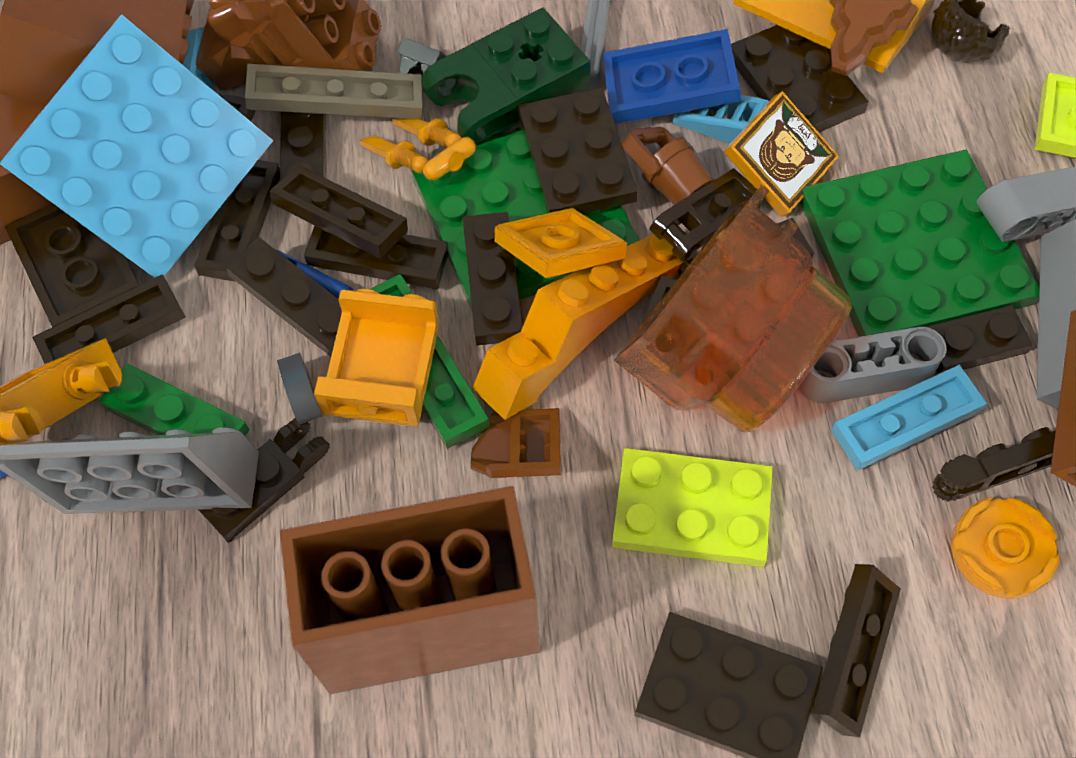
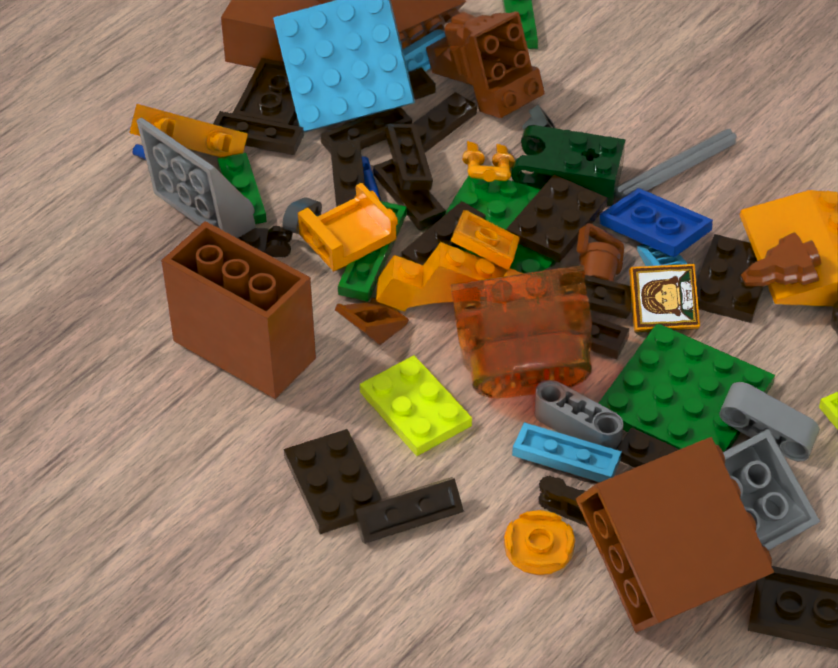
camera: 45 degrees right, 15 degrees down
(333, 91) = (474, 105): dark tan plate -> none

